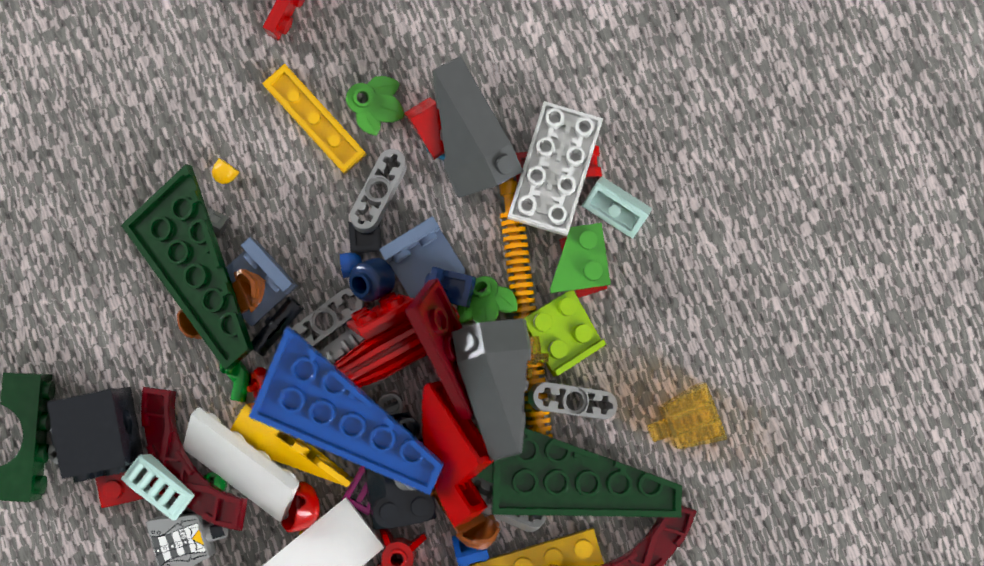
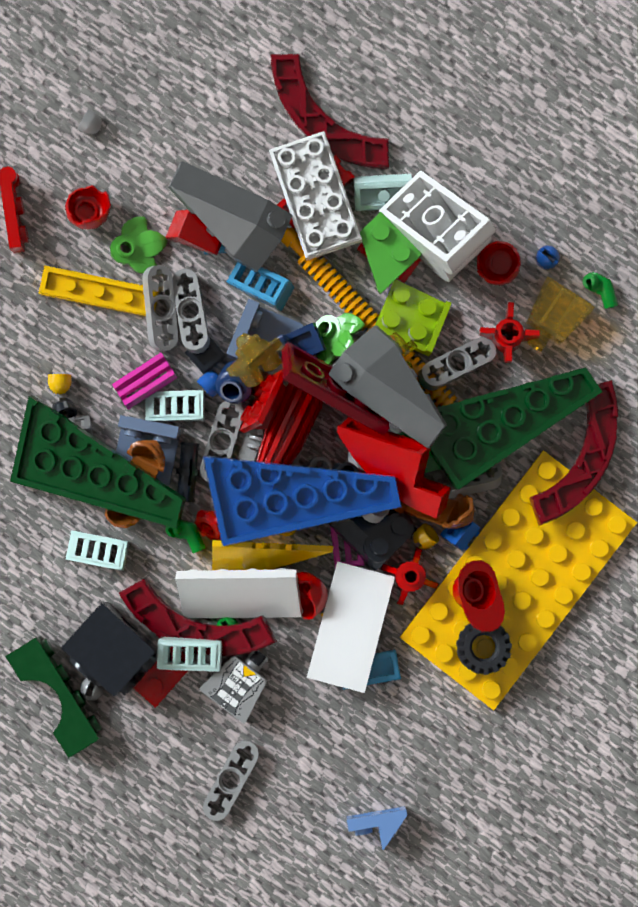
camera: 35 degrees left, 0 degrees up
(175, 347) = (121, 554): none -> light aqua slope
(212, 196) = (65, 407): none -> black hinge
(296, 217) = (142, 378): none -> dark pink tile
(327, 276) = (199, 400): none -> light aqua slope
(355, 40) = (88, 207): none -> red hair
(358, 182) = (170, 315): none -> light grey beam
(399, 266) = (253, 353): none -> clear yellow hips
(438, 530) = (426, 537): none -> yellow hinge
(466, 232) = (281, 295): none -> dark azure slope
(600, 102) = (311, 119): none -> dark red tile
(643, 270) = (439, 225): none -> white brick
(643, 404) = (511, 327): none -> red brick
(671, 339) = (499, 263): none -> red hair
(712, 367) = (544, 261): none -> blue hinge
(746, 423) = (602, 286): none -> green arm

